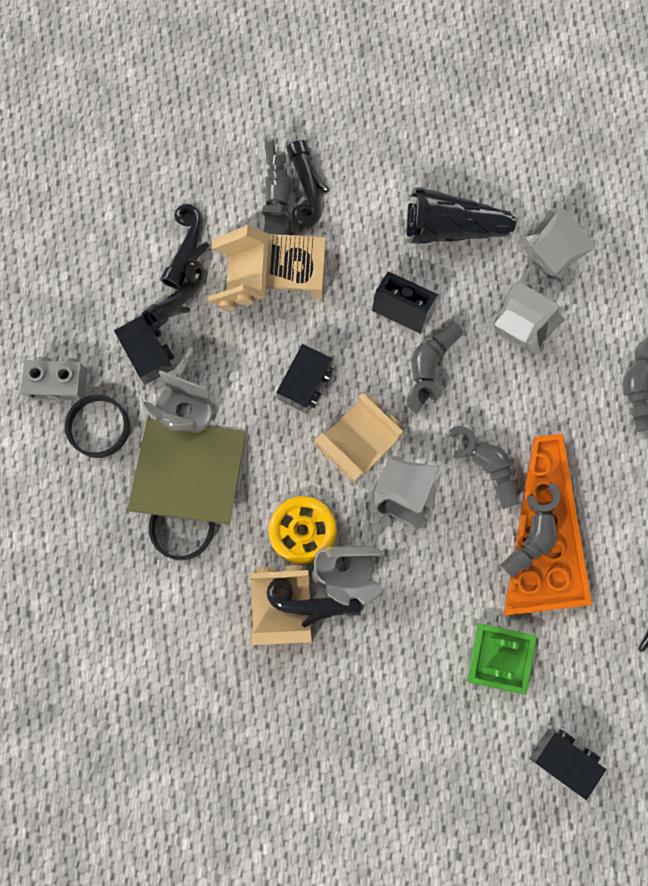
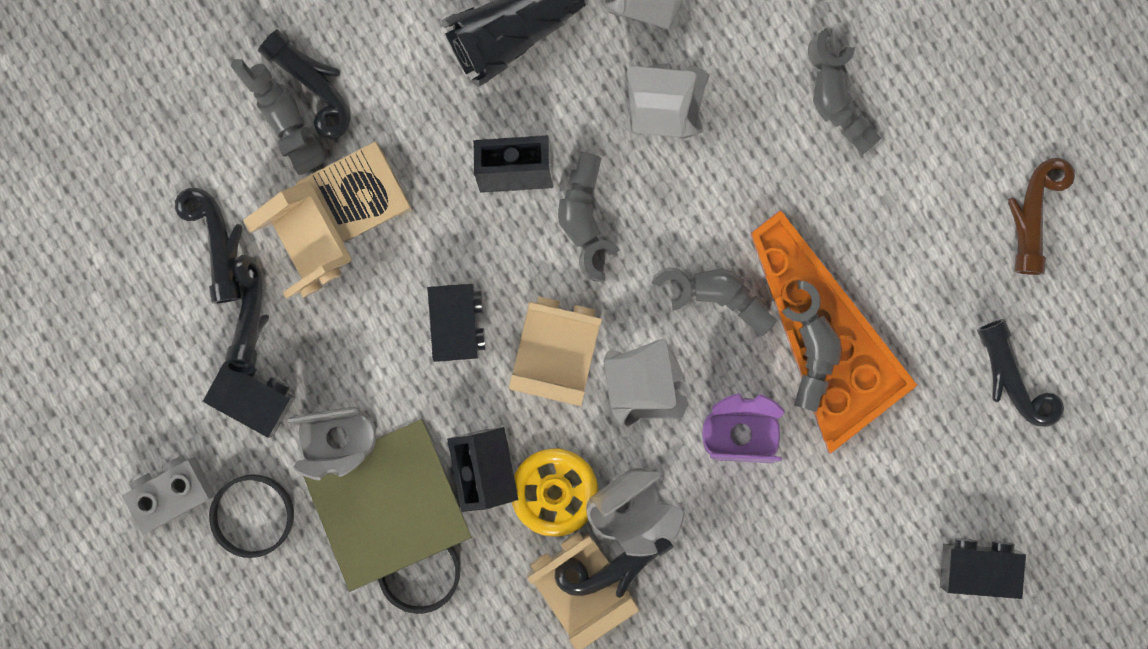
camera: 30 degrees left, 10 degrees up
(265, 483) = (485, 466): none -> black brick
(466, 553) = (758, 414): none -> medium lavender piece
(501, 658) = (852, 501): bright green plate -> none

